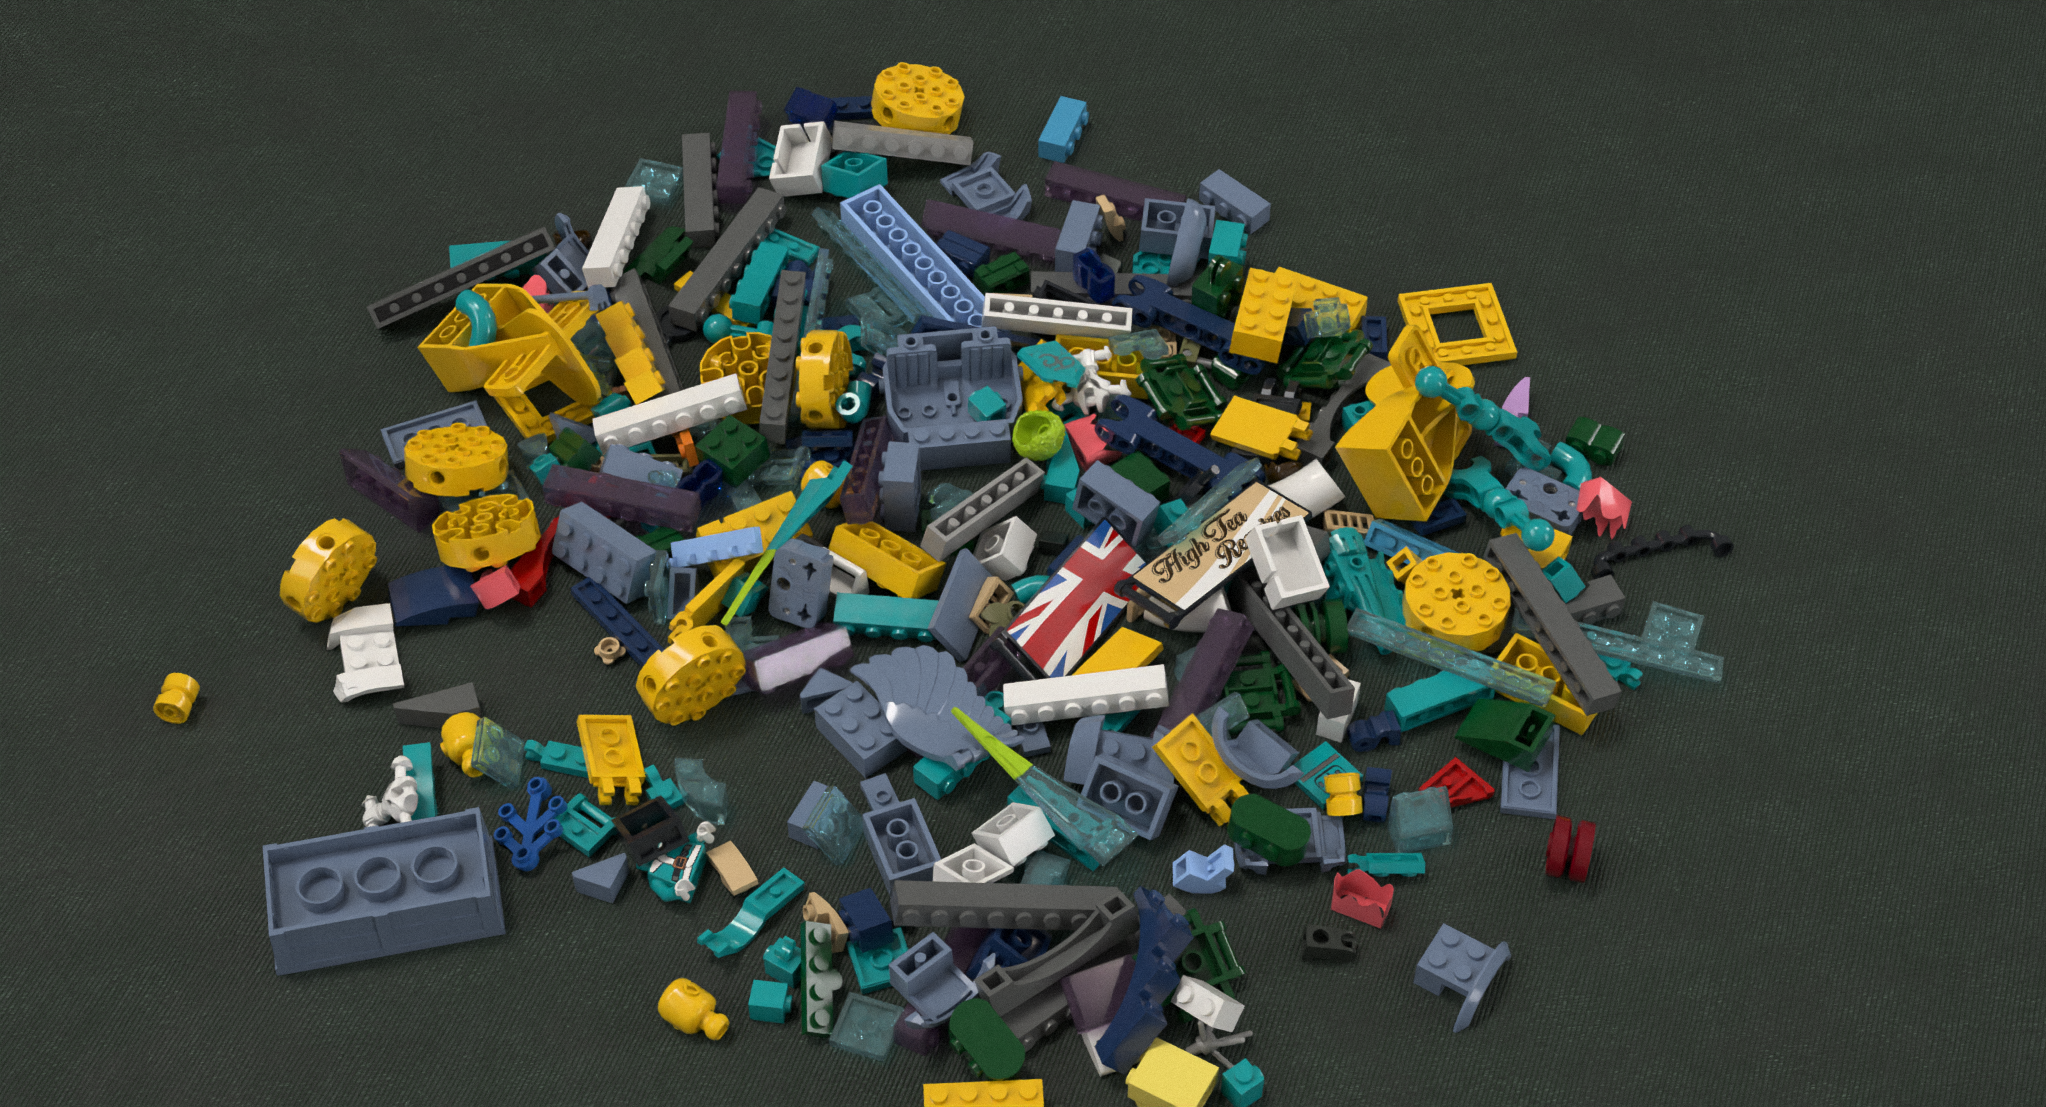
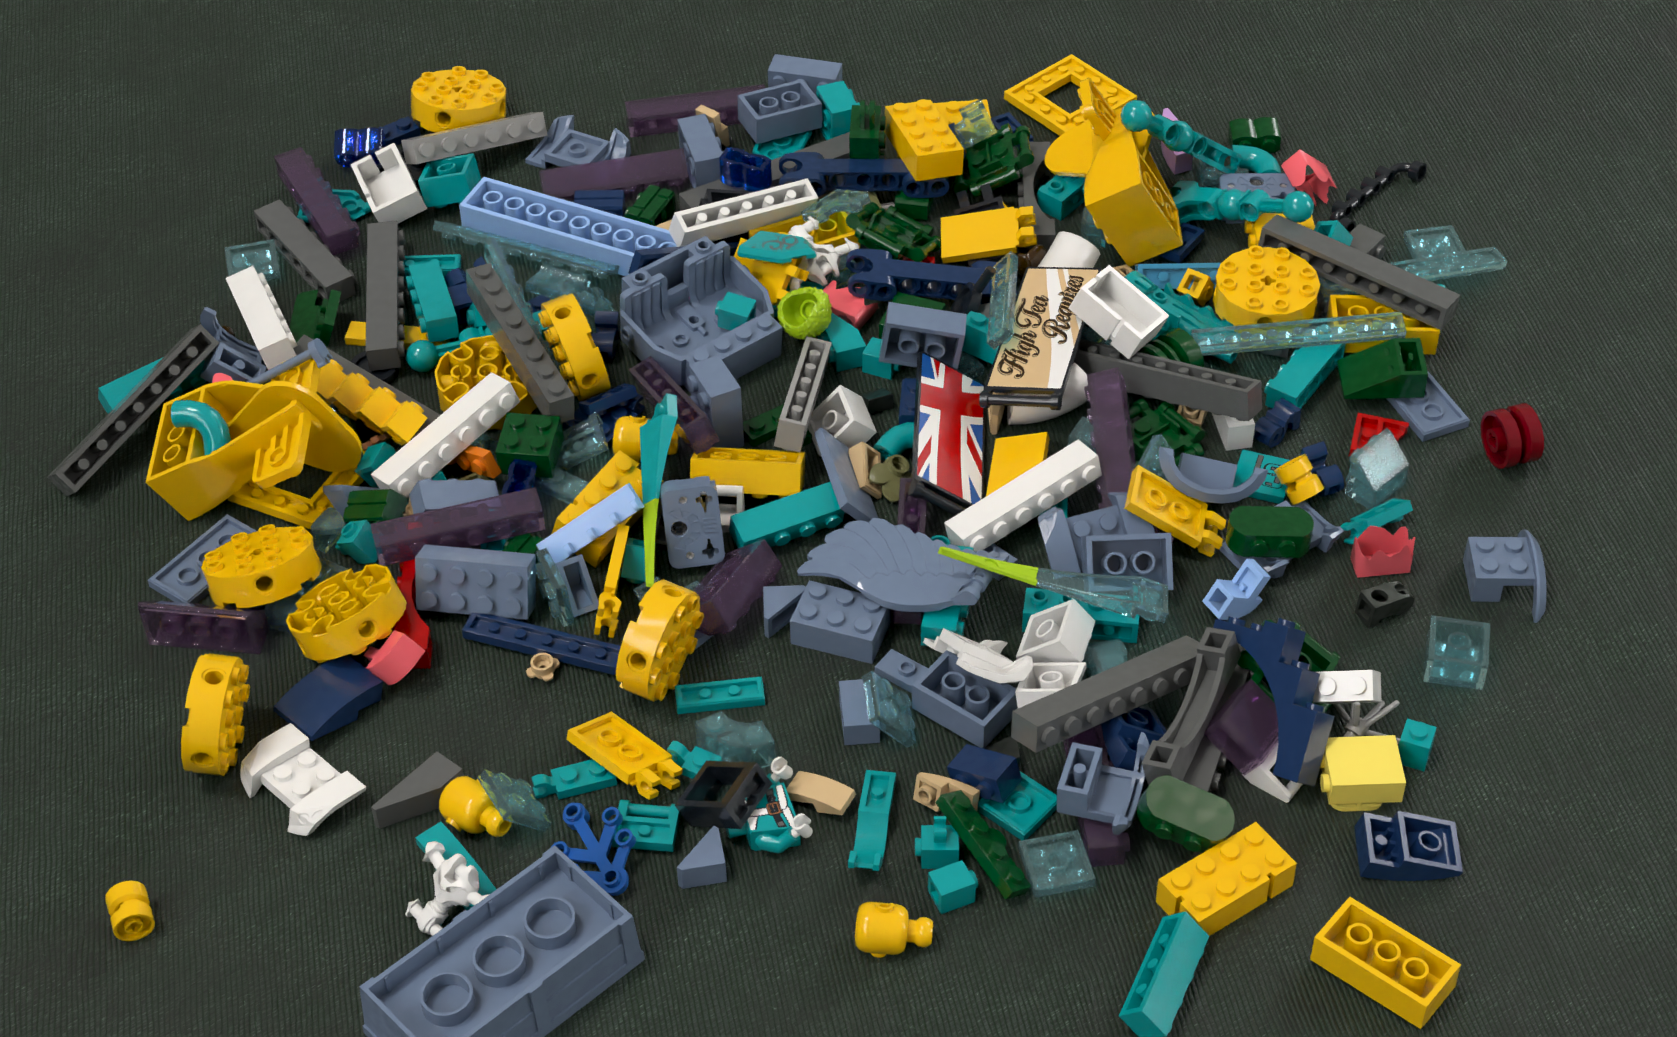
camera: 30 degrees left, 5 degrees down
(662, 476) = (487, 489): clear light blue arm -> none
(725, 744) = (719, 695): none -> teal tile
(855, 403) = (614, 357): teal cylinder -> none
(931, 821) = (982, 657): none -> white piece
(946, 498) = (765, 403): clear light blue plate -> none
(1063, 129) = (607, 78): dark azure brick -> none
(1187, 244) = (805, 112): sand blue brick -> none
(1346, 1022) = (1457, 652): none -> clear light blue brick

